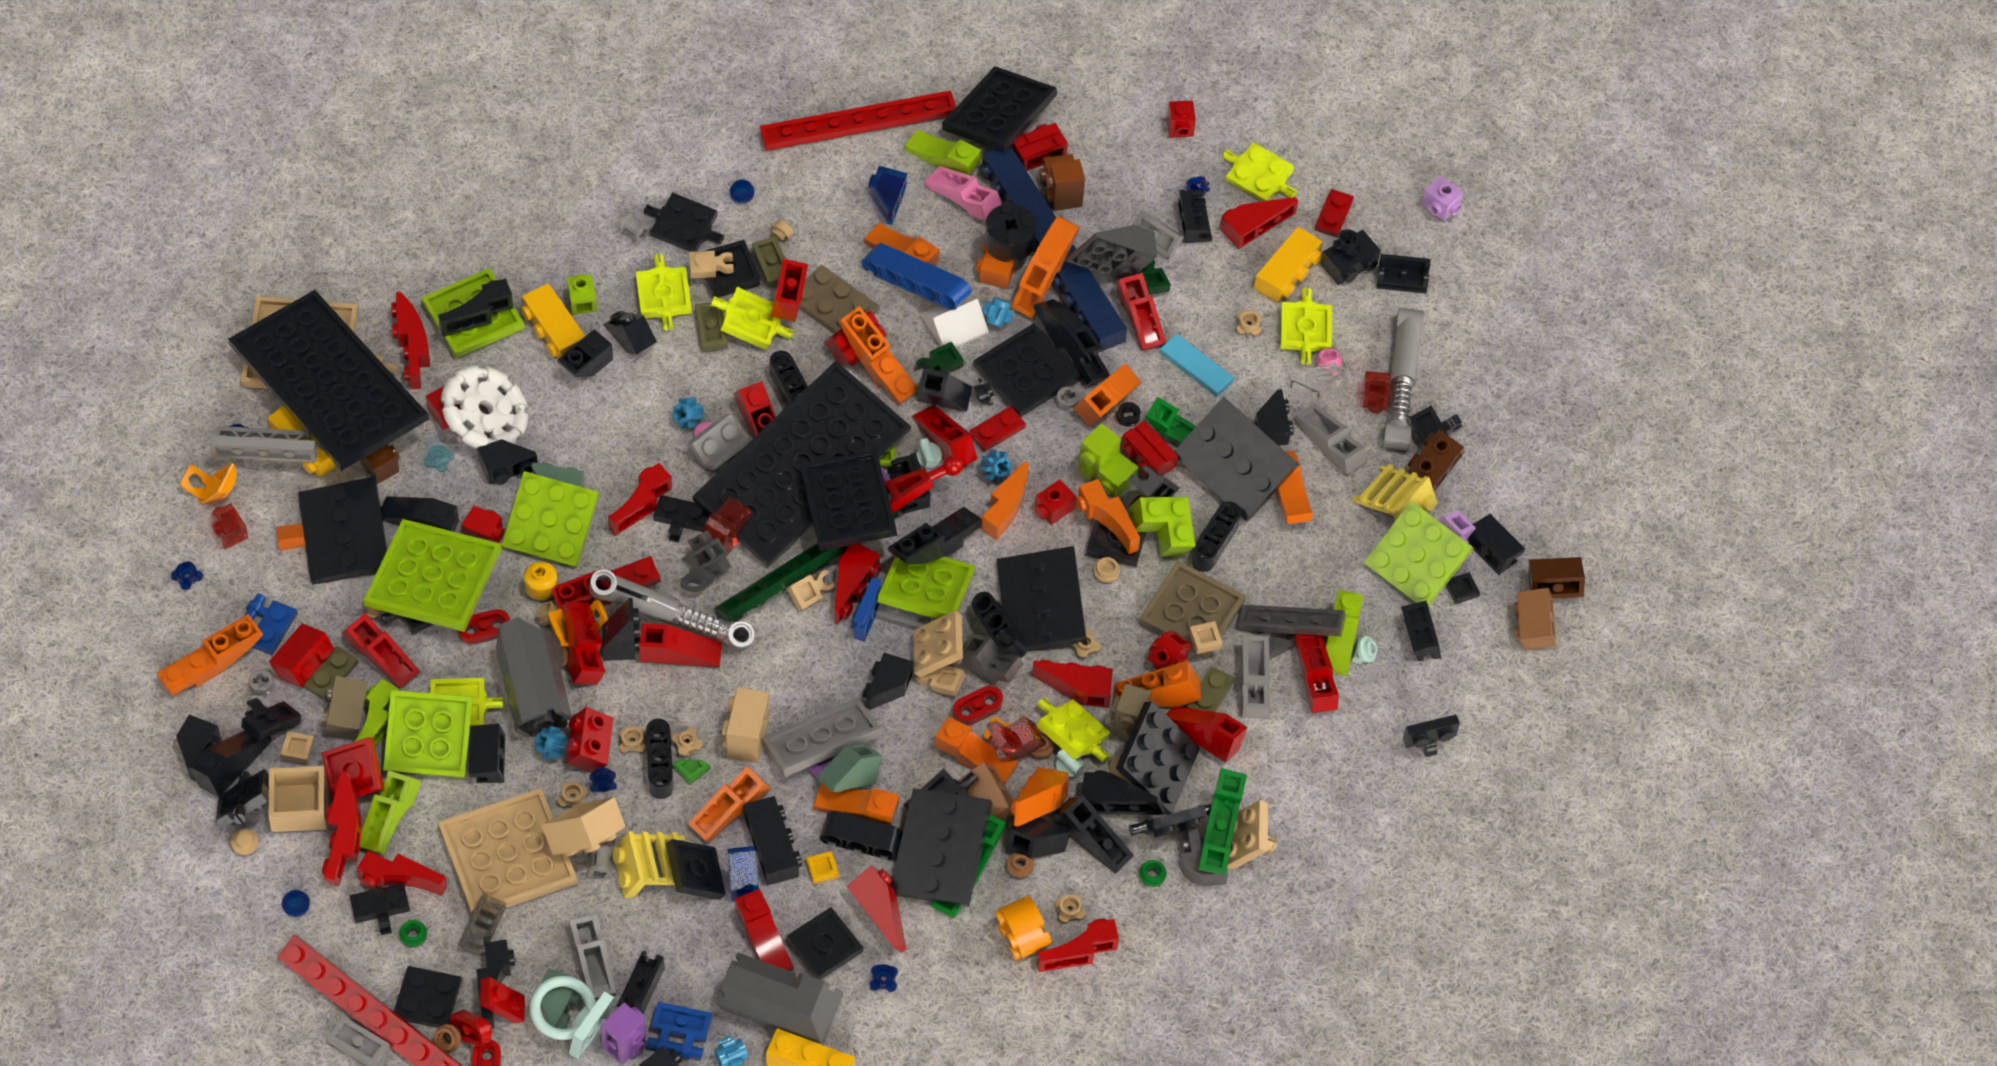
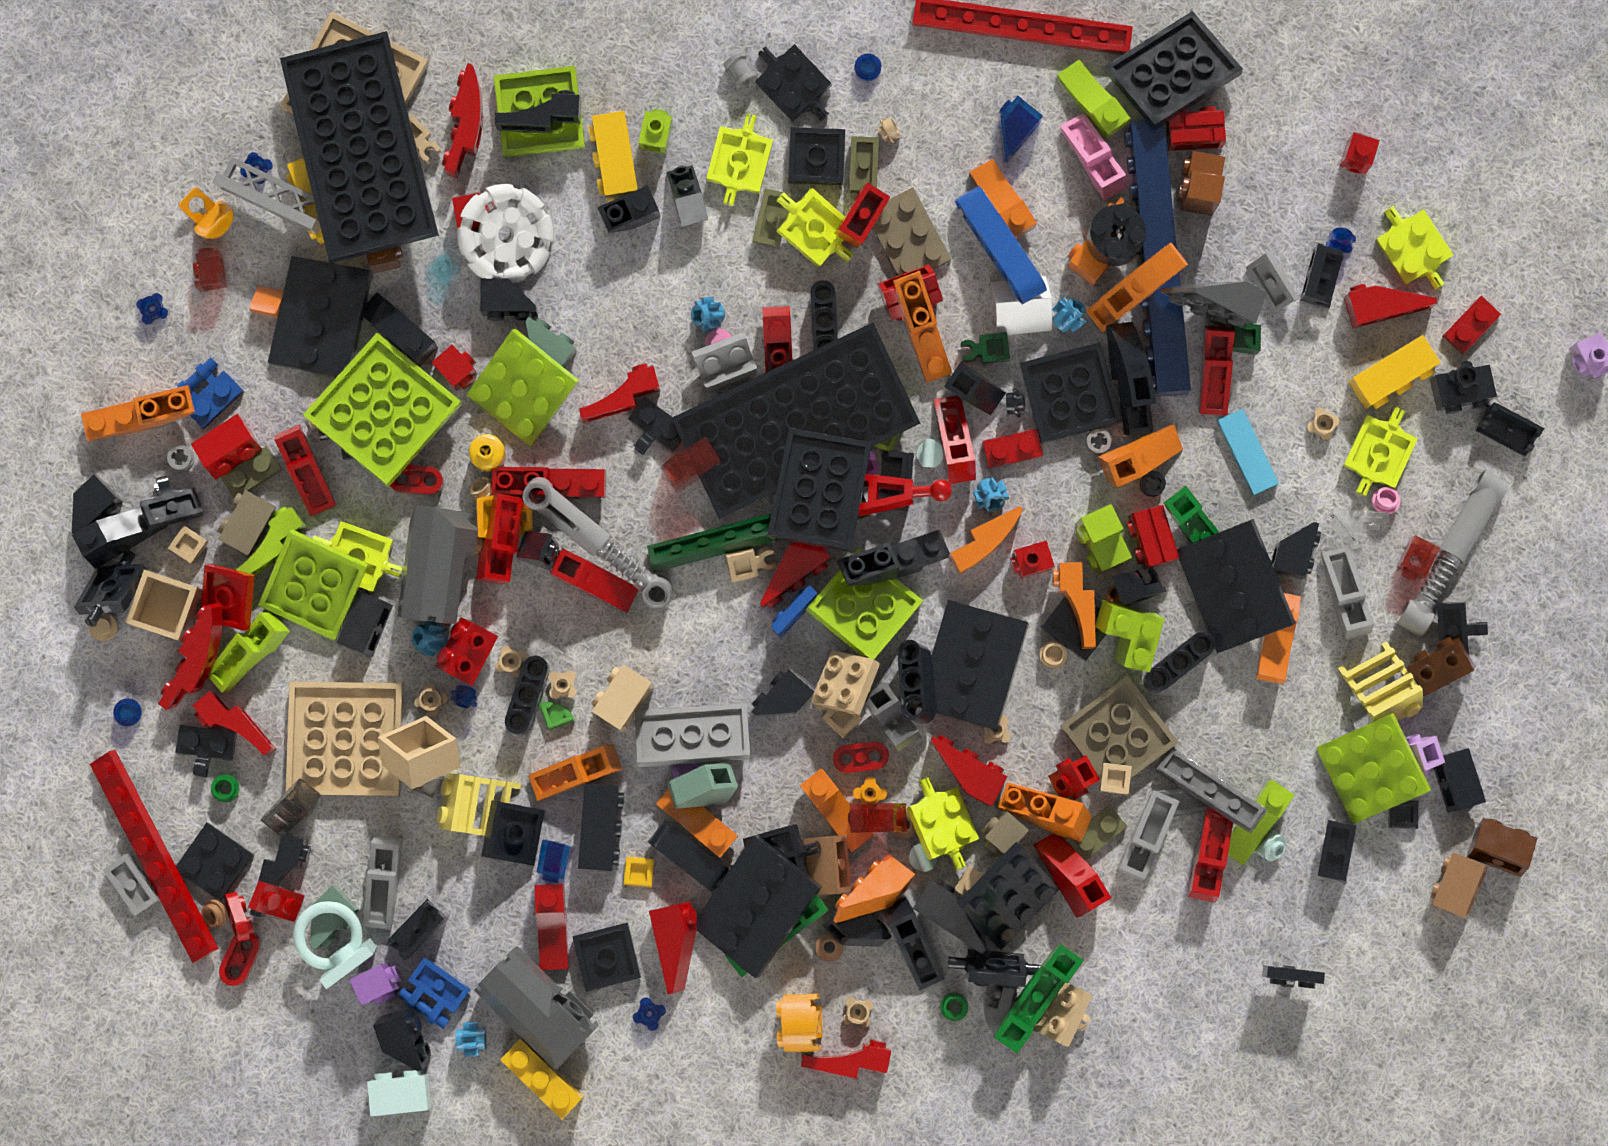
camera: 25 degrees right, 25 degrees up
(705, 264) = (793, 145): tan plate -> none
(714, 560) = (657, 496): dark grey piece -> none

